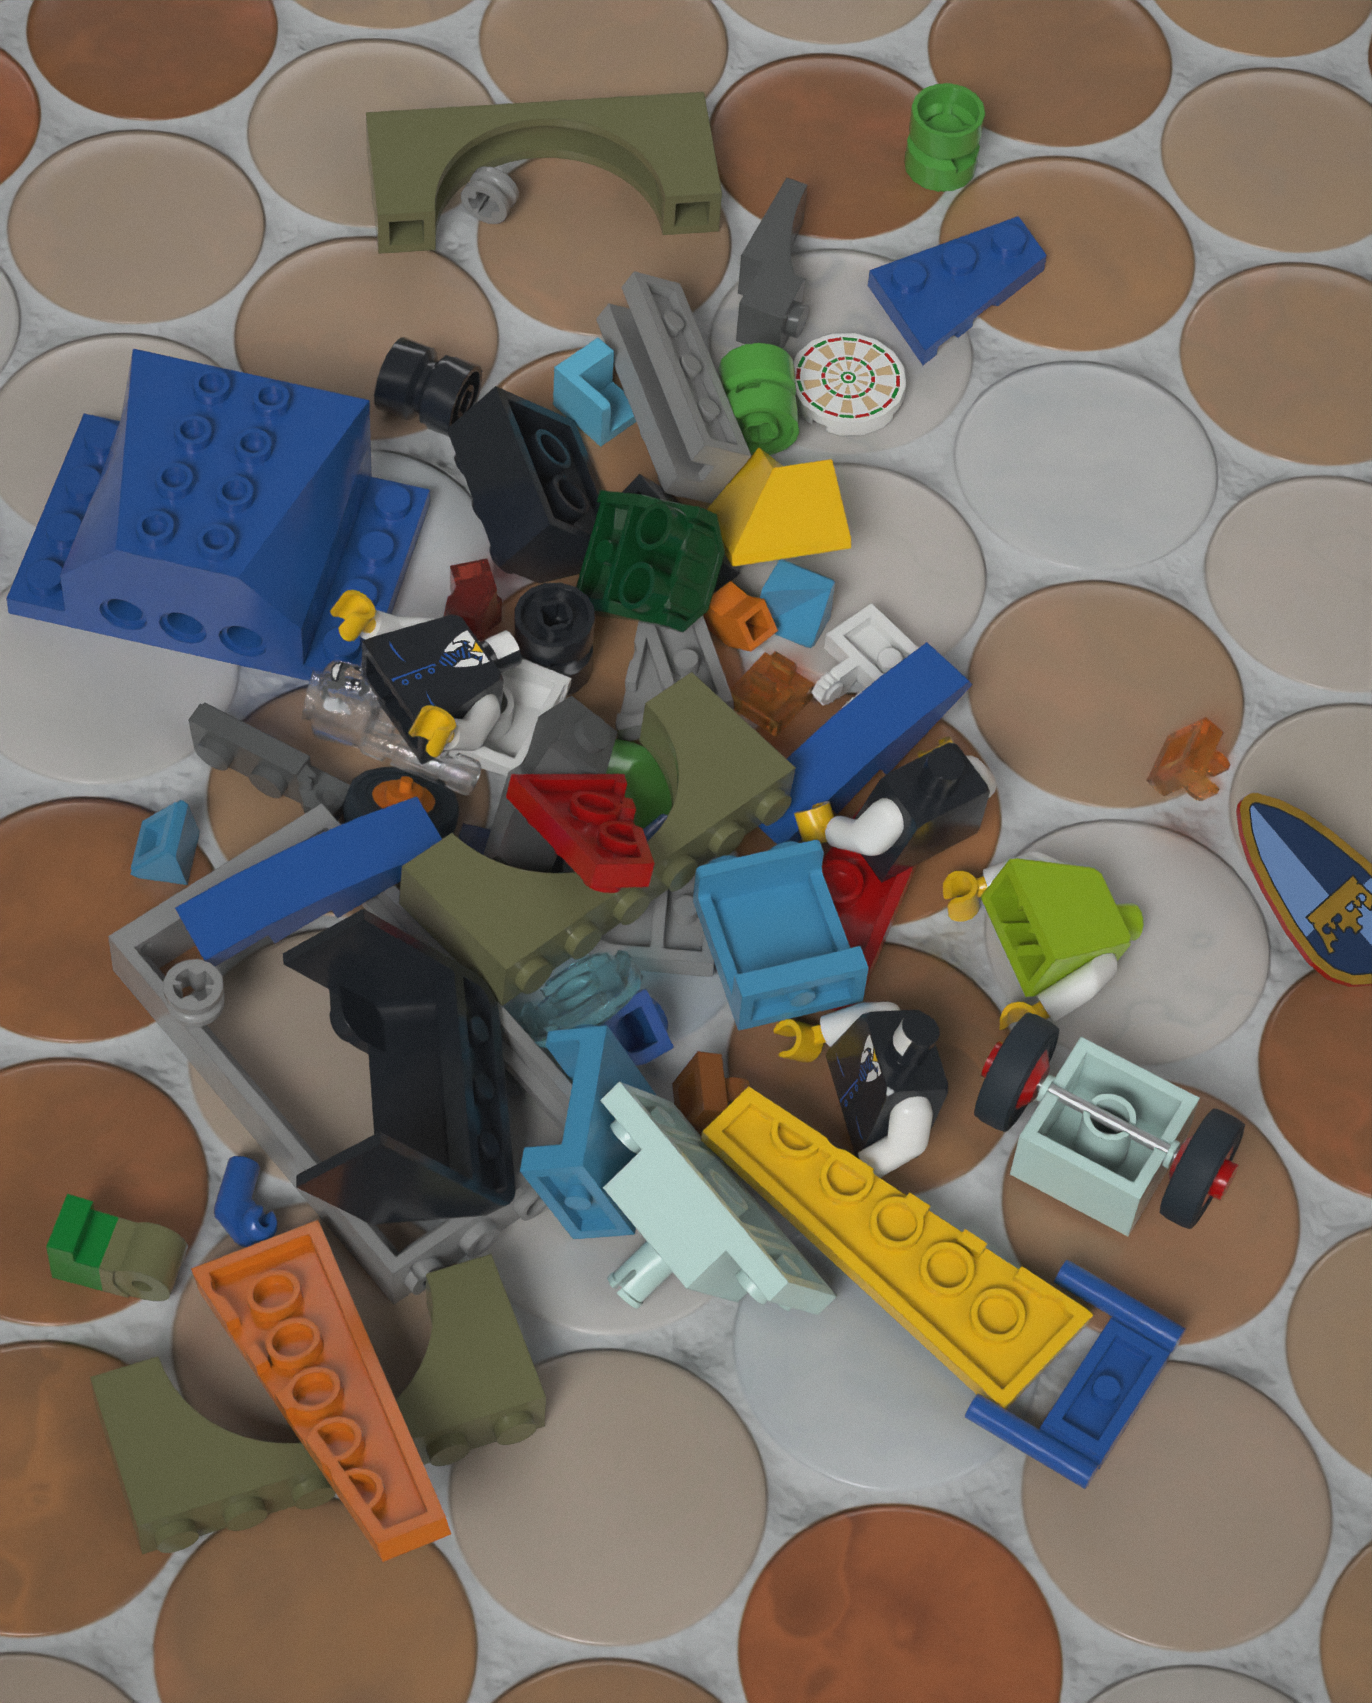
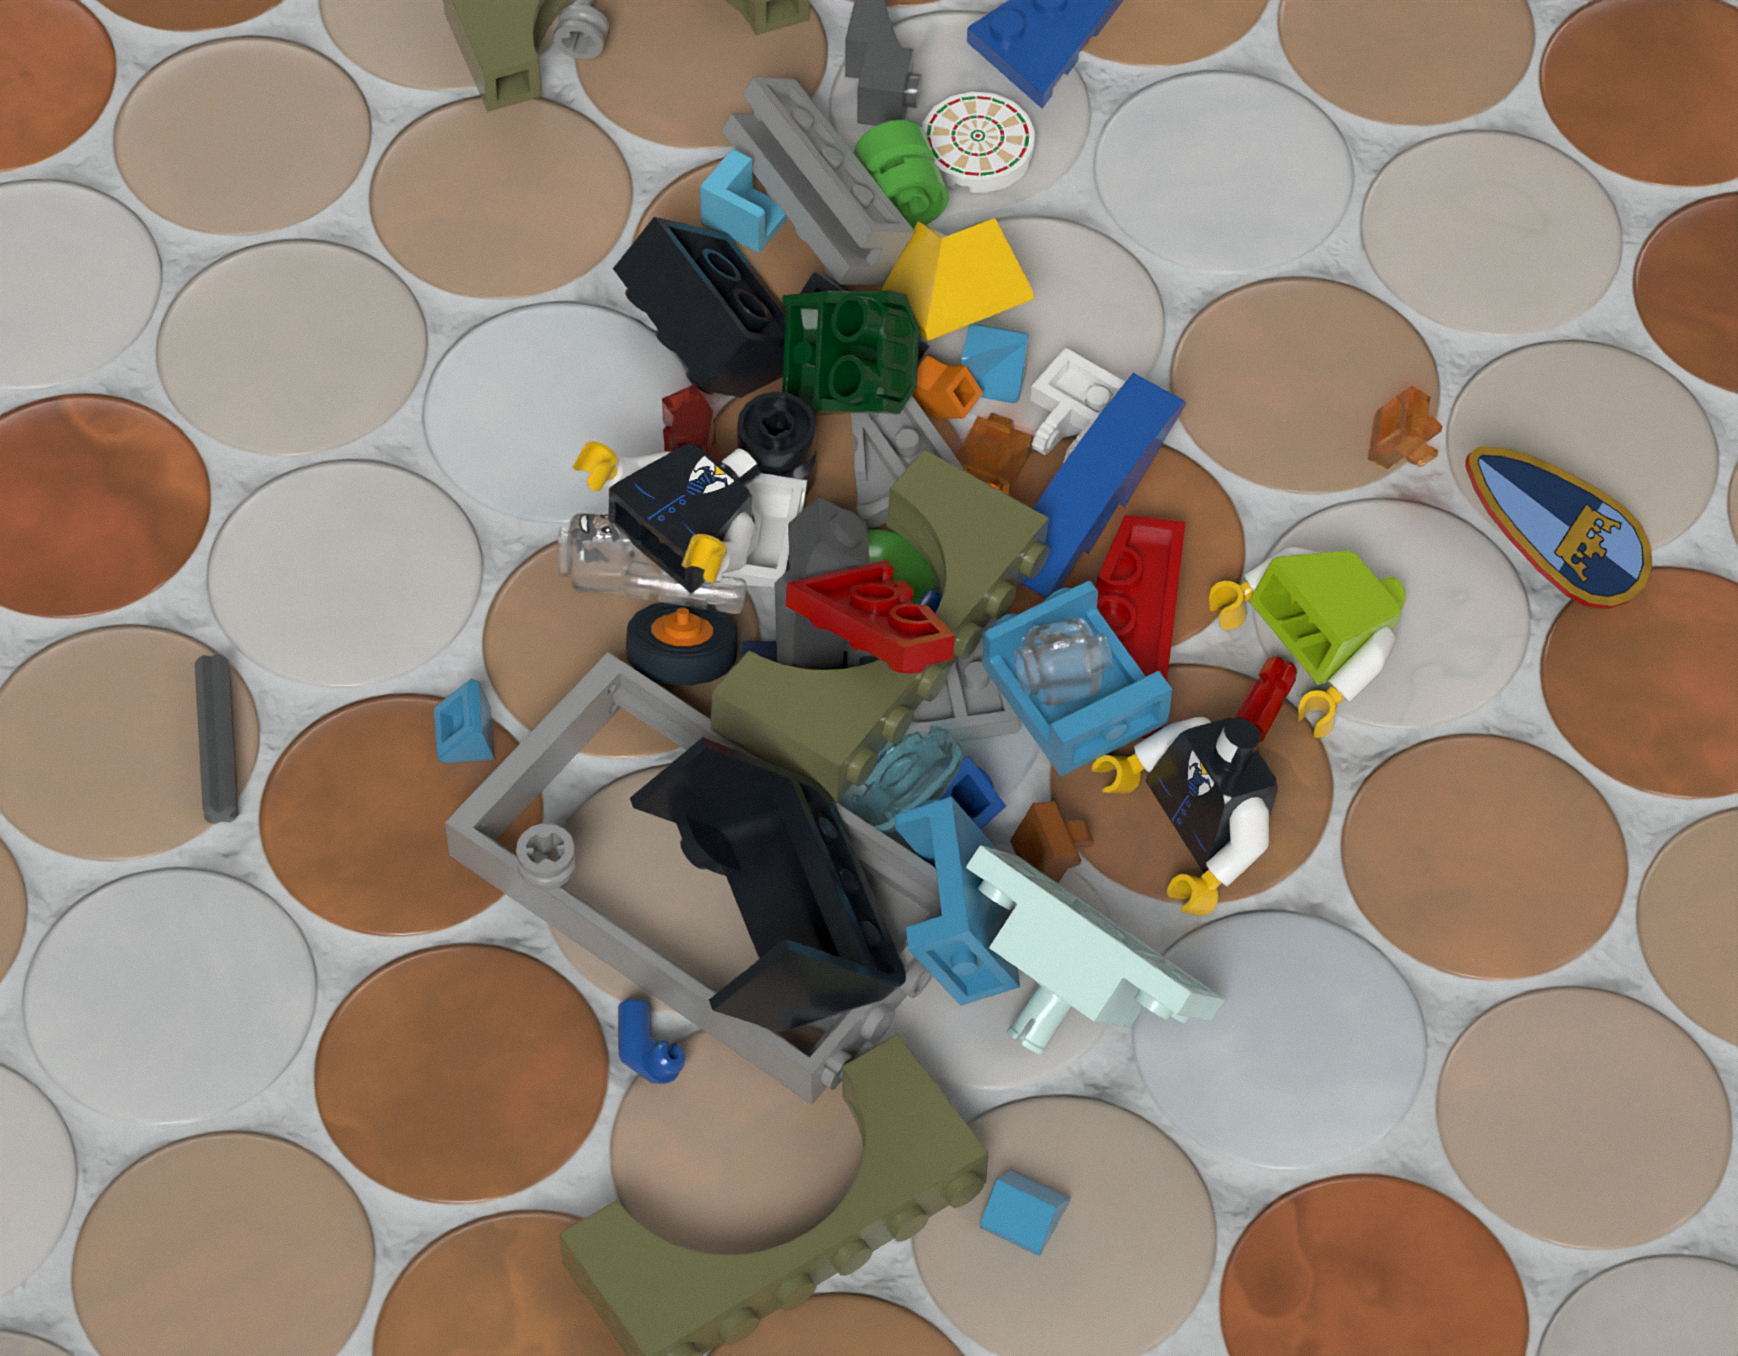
camera: 10 degrees left, 0 degrees up
(114, 1252) = (541, 1116): leg -> none
(220, 520) = (422, 405): blue wedge -> none
(268, 762) = (537, 623): dark grey hinge -> none
(308, 880) = (623, 726): blue slope -> none
(315, 1360) = (766, 1169): orange wing -> none
(418, 383) = (573, 230): black wheel -> none
(571, 1464) = (1023, 1211): none -> dark azure slope
(767, 915) = (1062, 661): none -> clear head
(909, 811) = (1167, 536): black torso -> none
(941, 1284) = (1313, 965): yellow wing -> none
(969, 1002) = (1266, 694): none -> red axle
(1101, 1392) = (1490, 1030): blue plate -> none
(1105, 1130) = (1428, 790): light aqua brick -> none

